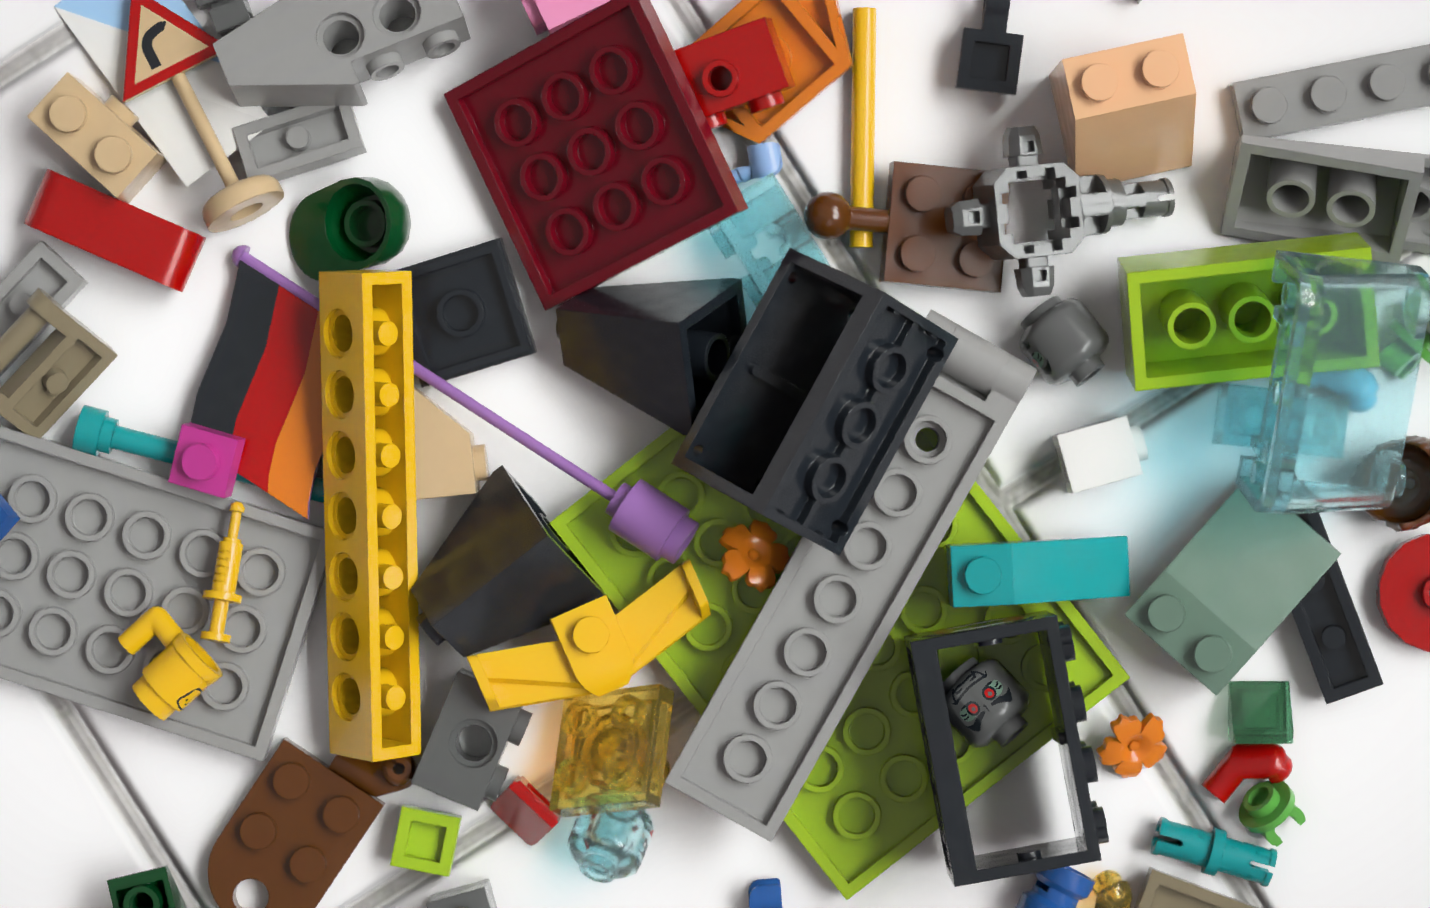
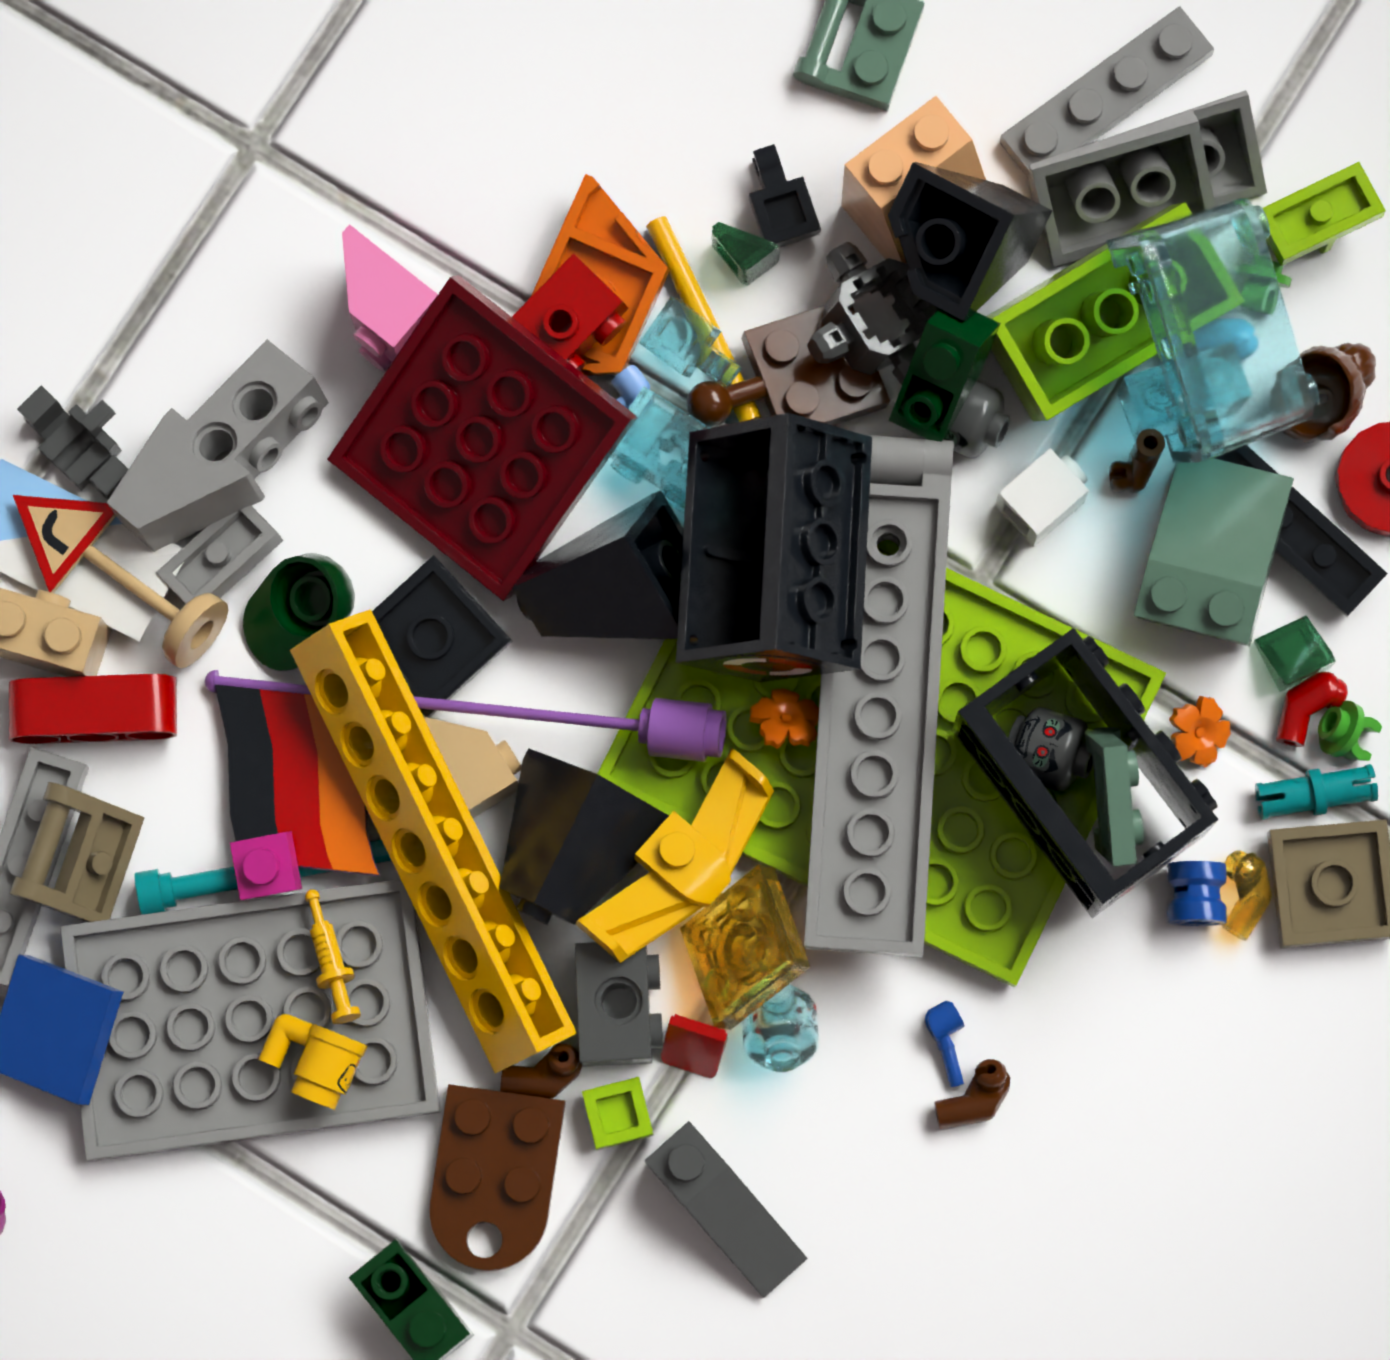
camera: 20 degrees left, 10 degrees down
(833, 143) = (686, 343): none -> clear light blue plate
(930, 82) = (744, 252): none -> clear green slope
(1006, 815) = (1114, 775): none -> sand green plate
(1037, 571) = (1036, 615): teal slope -> none
(1060, 300) = (943, 373): none -> dark green slope
(1142, 180) = (962, 236): none -> black slope
(1205, 467) = (1140, 465): none -> reddish brown arm

